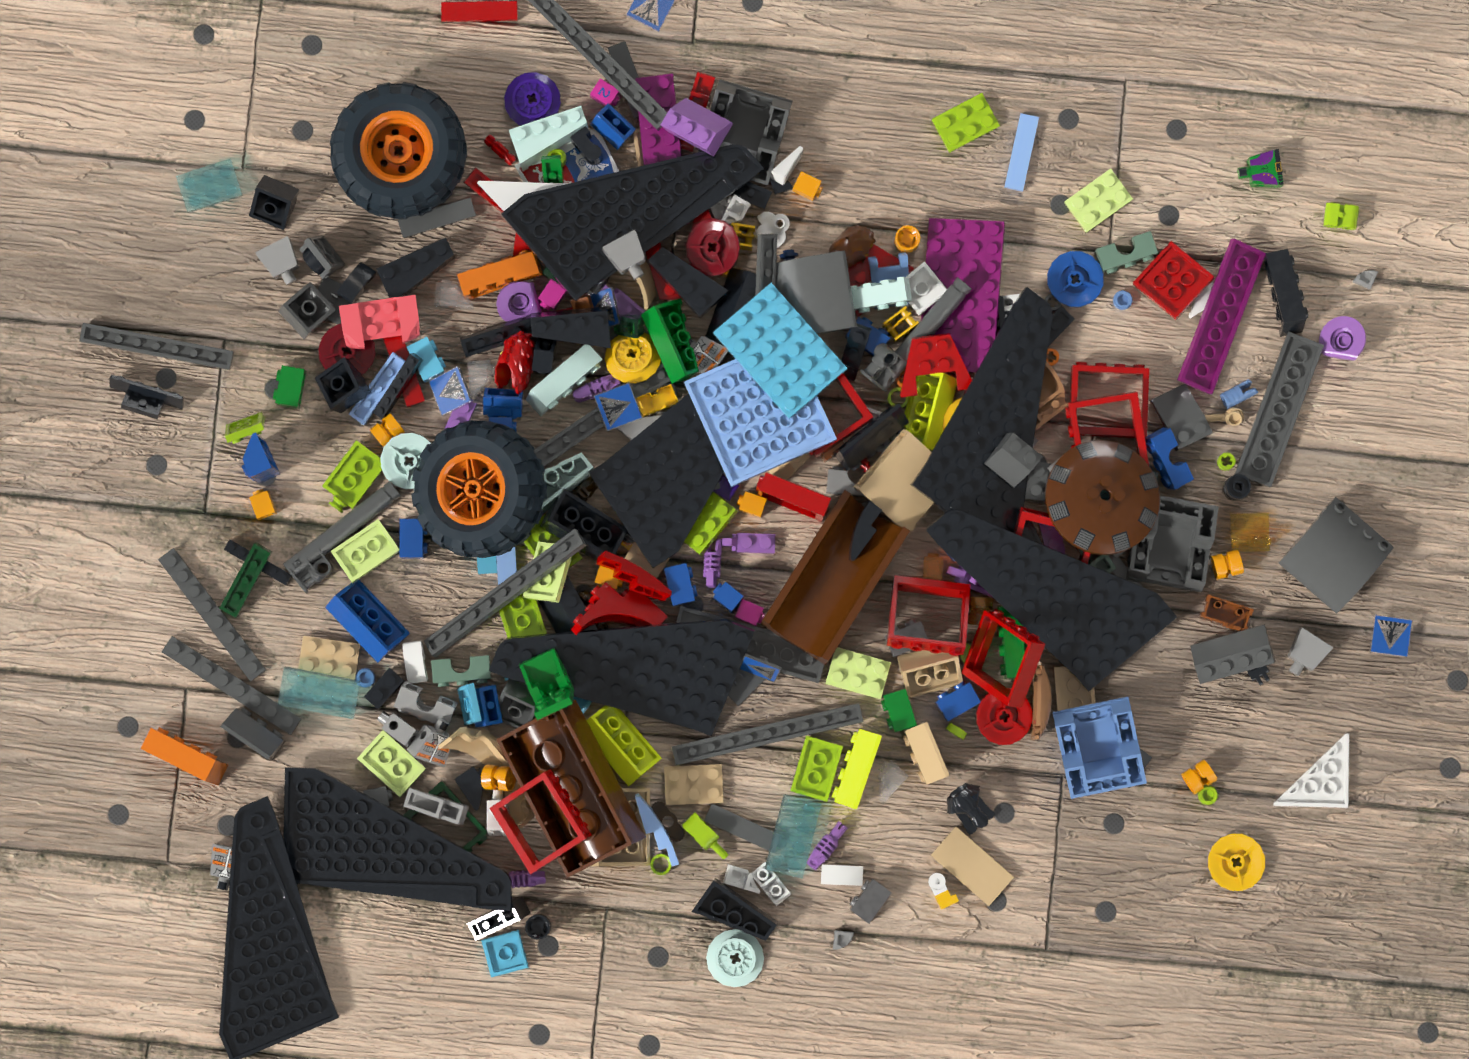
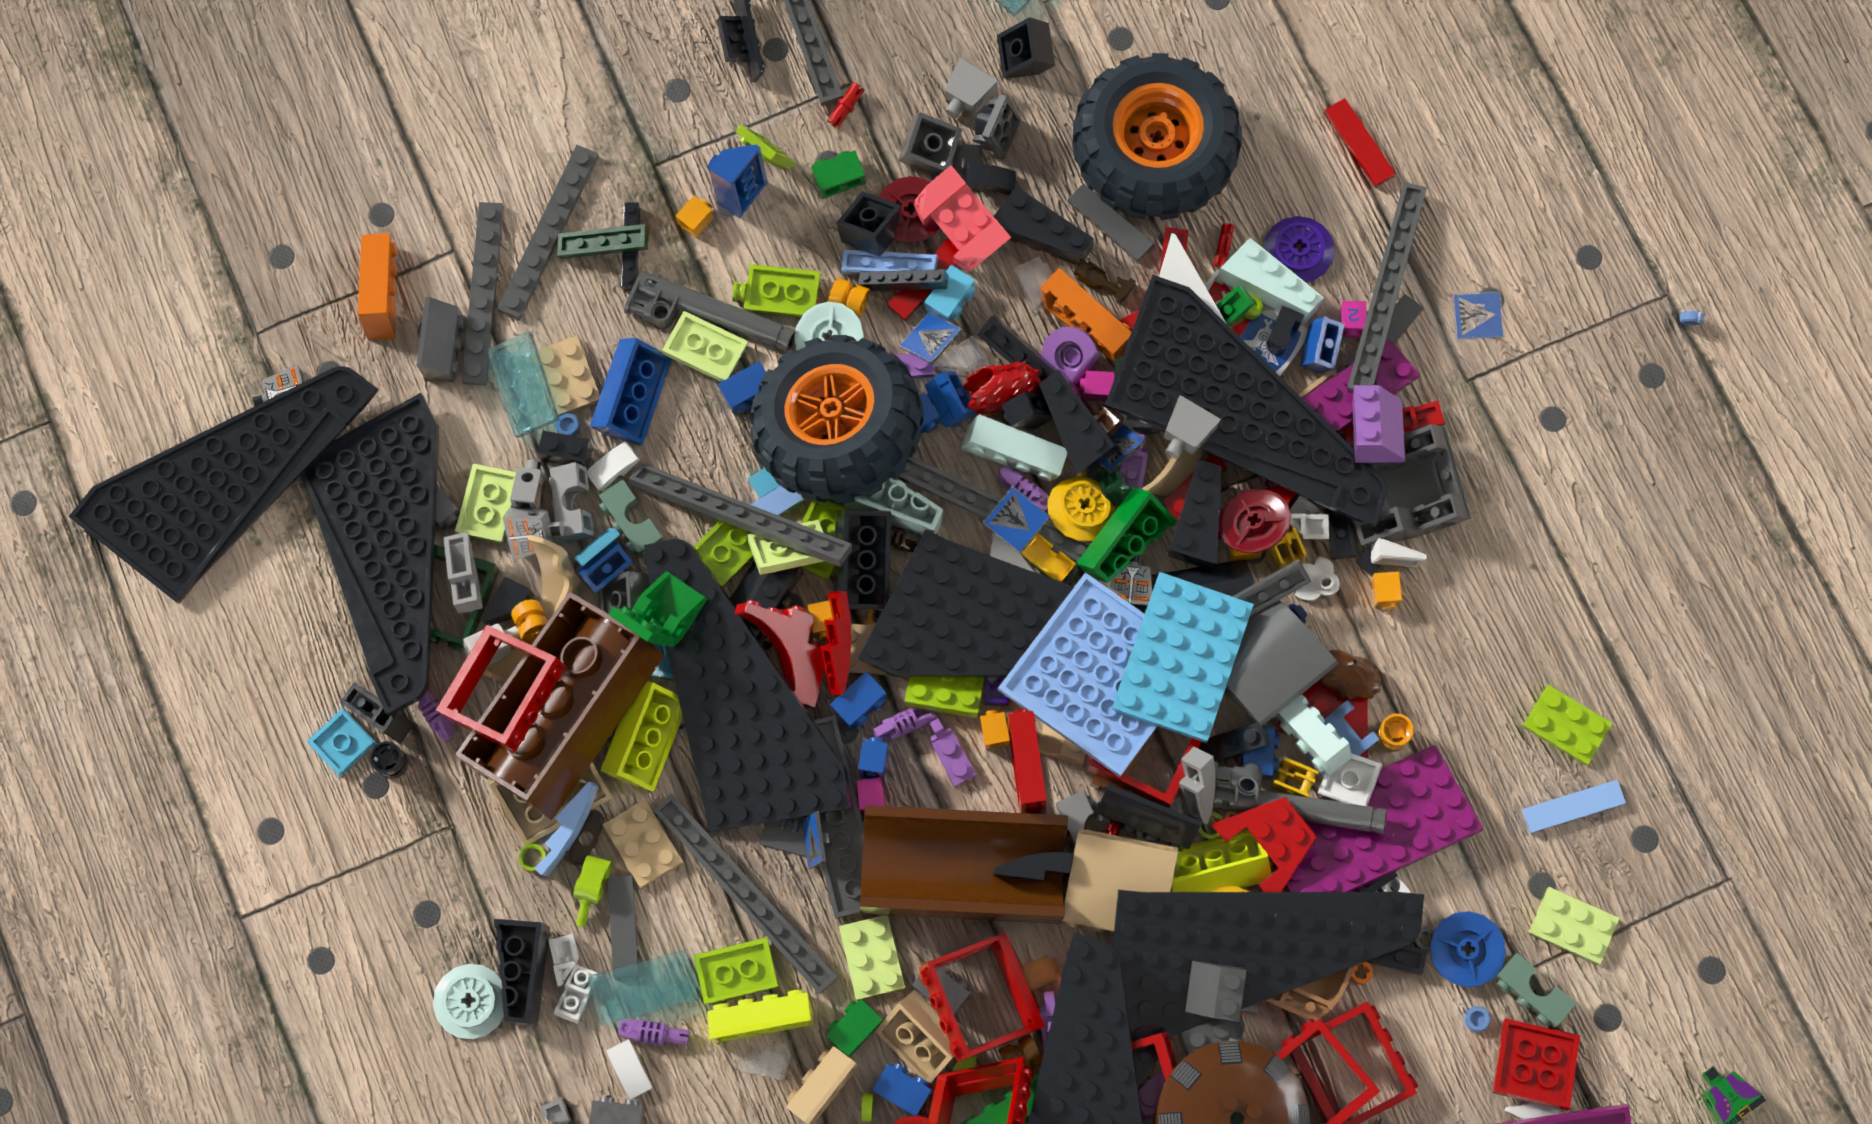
camera: 70 degrees right, 10 degrees down
(240, 352) = (845, 105): none -> red pin
(472, 251) = (1096, 278): none -> dark brown piece
(870, 390) = (1198, 784): none -> light grey slope

